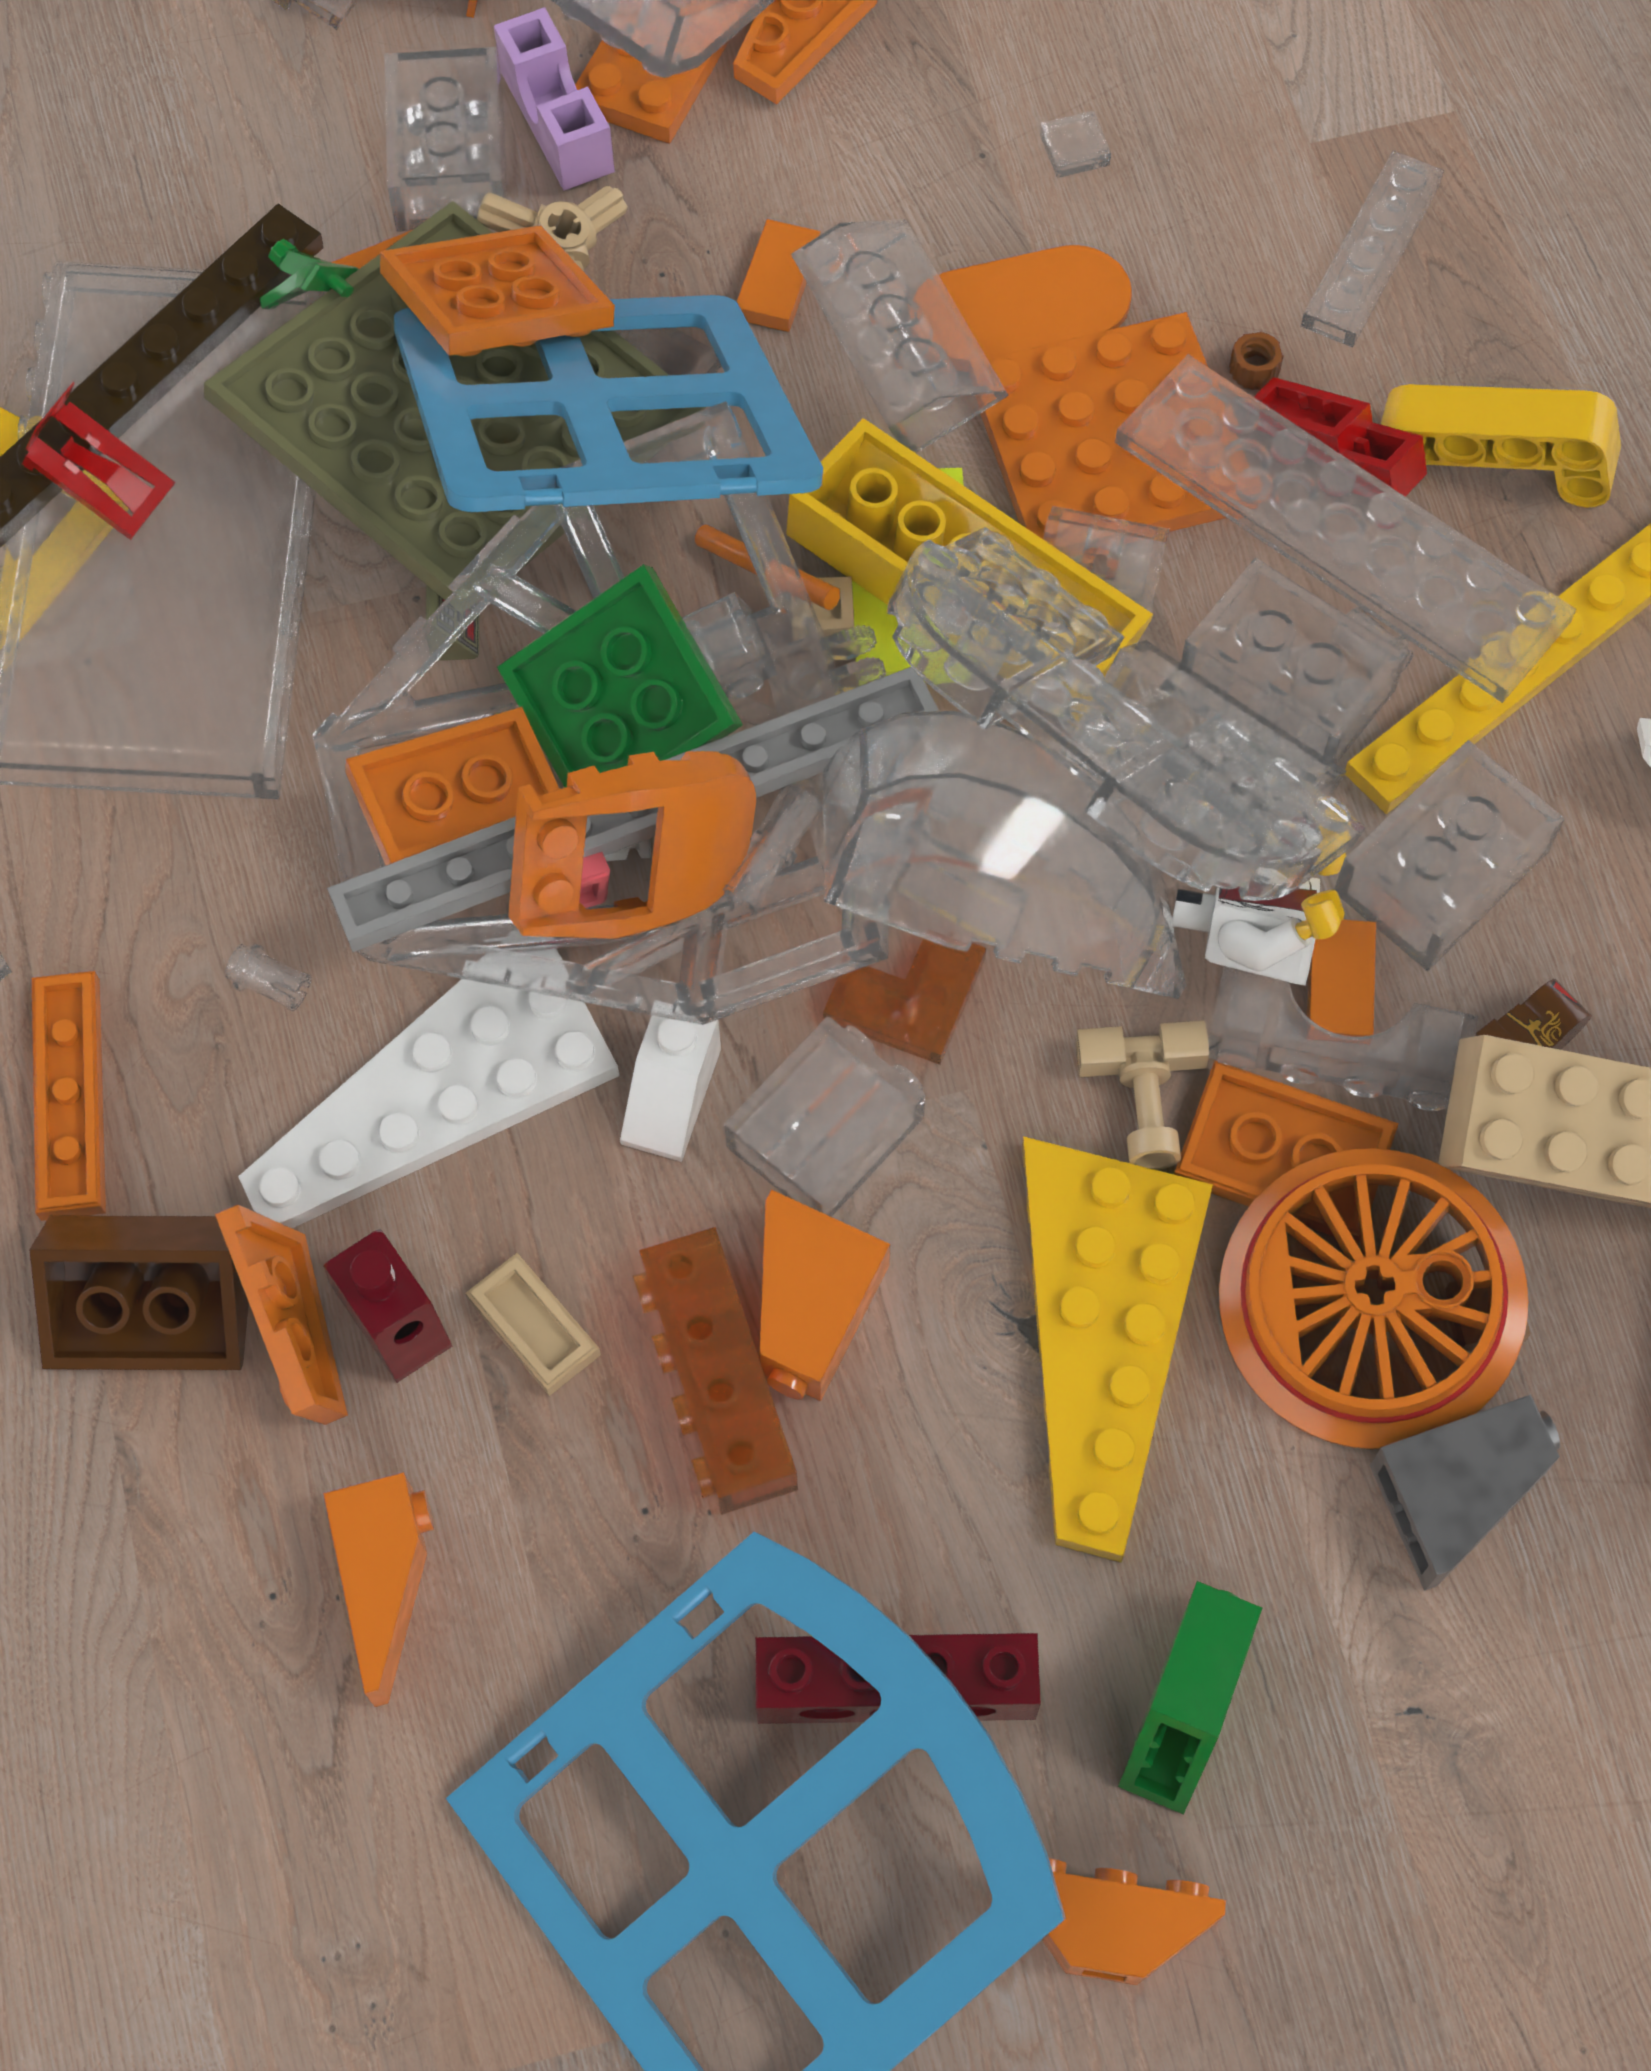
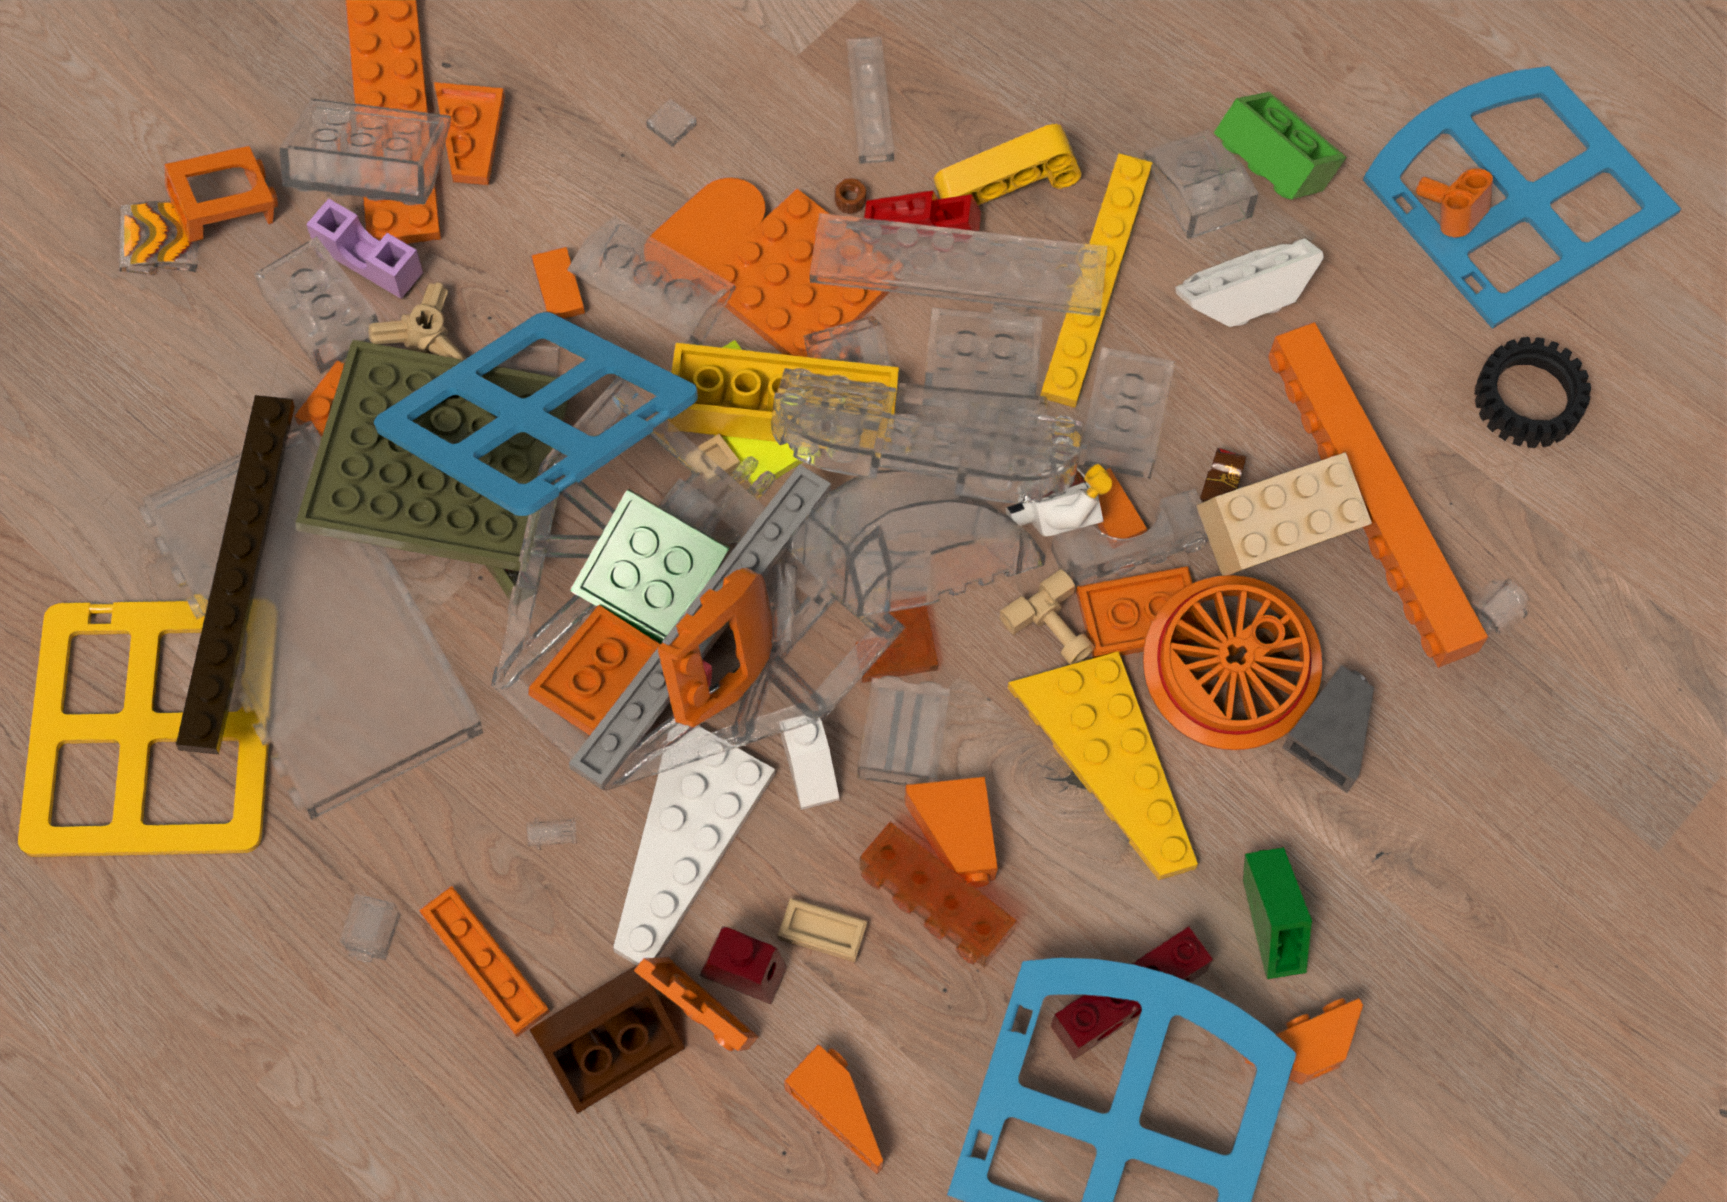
camera: 35 degrees left, 0 degrees up
(128, 488) = (256, 619): red piece -> none
(307, 274) = (306, 427): green piece -> none
(496, 290) = (425, 379): orange plate -> none
(734, 551) = (659, 453): orange bar -> none

